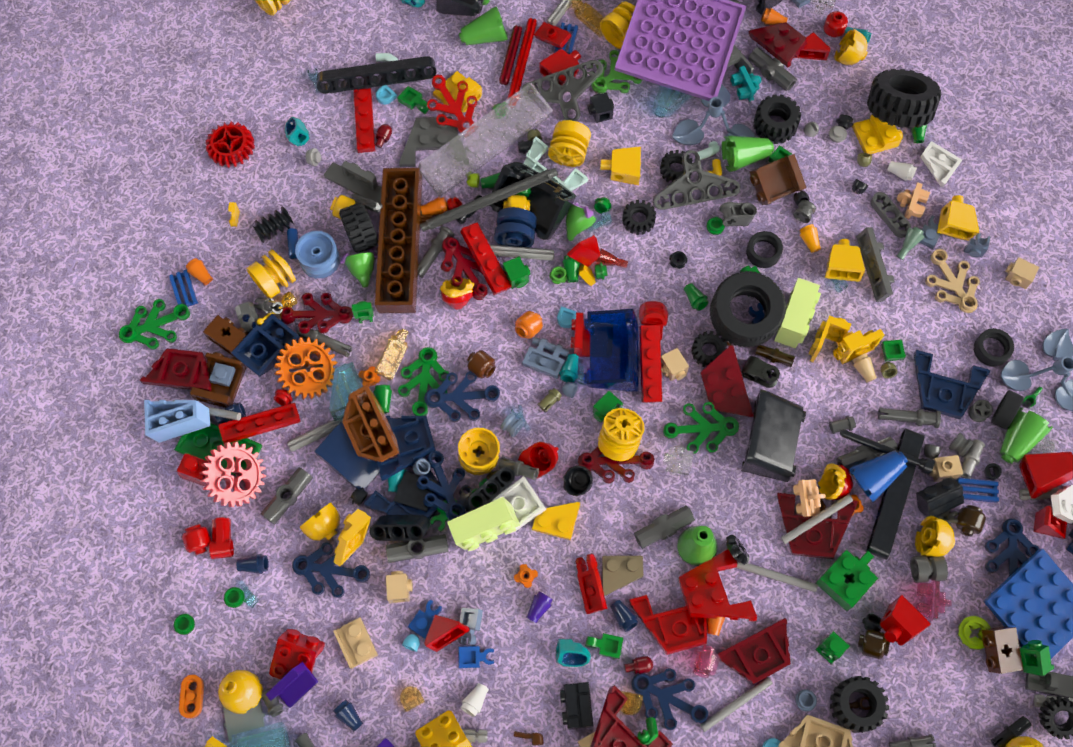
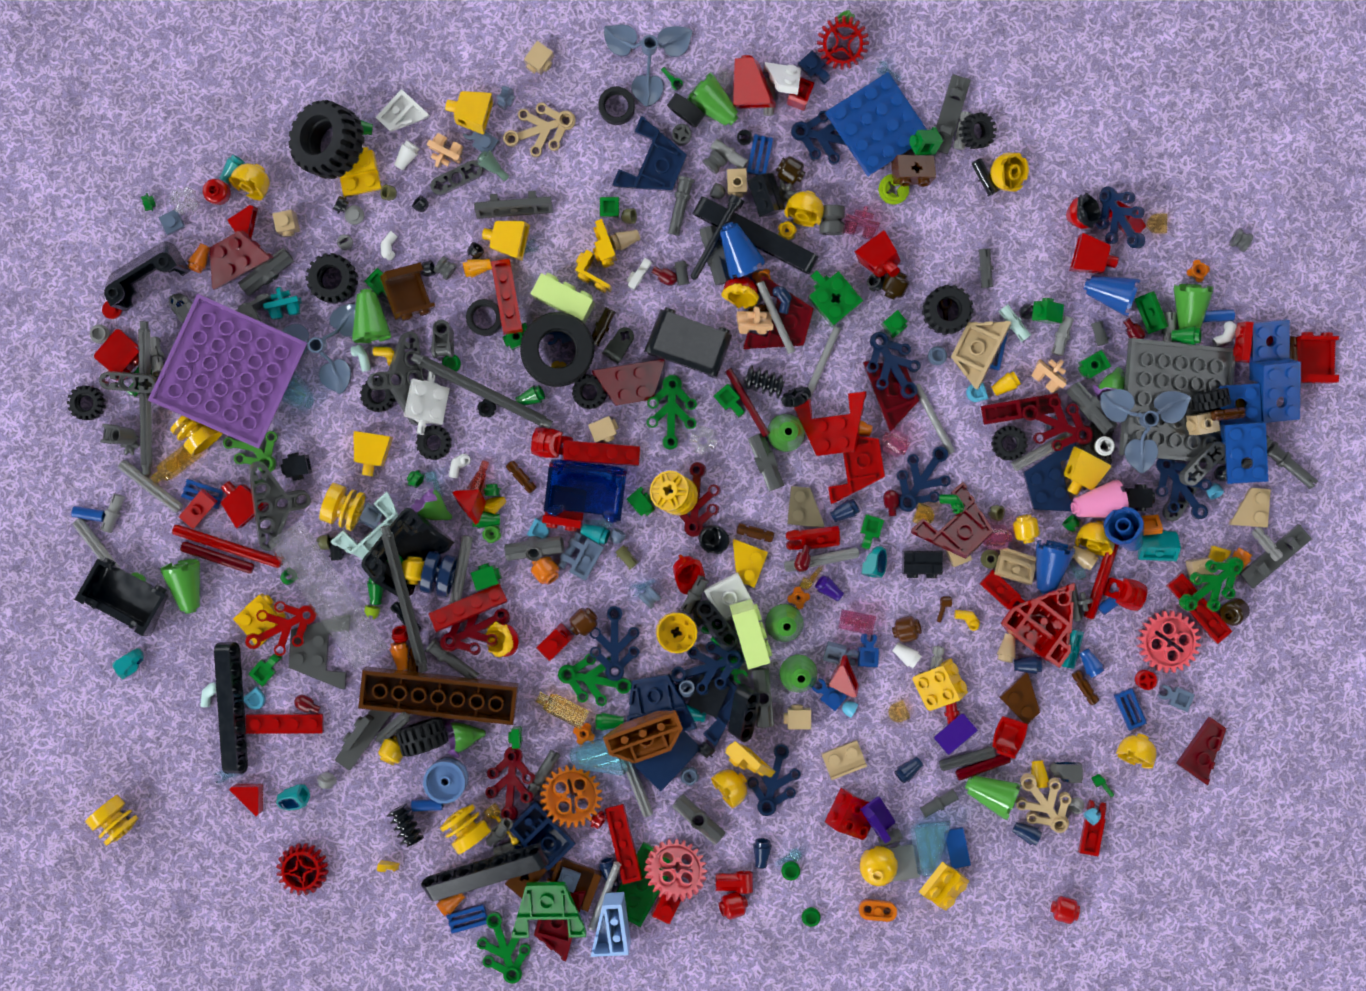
camera: 90 degrees left, 20 degrees up
(199, 355) = (547, 902): none -> green wing
(229, 295) = (485, 872): none -> black beam
(296, 97) = (250, 795): none -> red slope
(331, 478) = (684, 776): none -> sand blue plate
(445, 584) = (793, 668): none -> bright green cone
(456, 337) = (555, 642): none -> red torso
(497, 564) = (778, 617): none -> bright green cone
(503, 696) = (907, 629): none -> reddish brown head
(506, 639) = (857, 622): none -> clear pink hips
(541, 583) = (807, 583): none -> clear yellow hand
(549, 312) = (534, 548): none -> dark grey piece
(564, 169) = (370, 516): none -> sand blue plate
(567, 573) = (803, 559): none -> dark red cylinder
(568, 595) = (826, 558): none -> light grey axle
(589, 524) = (755, 532): none -> reddish brown axle
(616, 296) = (520, 476): none -> reddish brown axle
(621, 239) = (457, 463): none -> white arm
(676, 205) = (426, 402): none -> white plate
(694, 253) = (481, 390): none -> dark grey piece
(722, 482) = (727, 399): none -> green plate
(722, 502) = (747, 402): none -> dark red bar
(745, 517) = (764, 381): none -> black piece
(789, 263) = (506, 296): none -> red plate
(790, 649) = (892, 362): none -> dark blue plant
(809, 162) = (386, 249): none -> white arm
(820, 79) = (286, 223): none -> tan brick
(826, 236) = (475, 250): none -> black hinge
(830, 382) = (635, 277): none -> white plate
(836, 409) = (665, 275): none -> dark red cylinder
(839, 524) = (785, 298): none -> dark blue arm
(911, 522) = (787, 225): none -> yellow plate

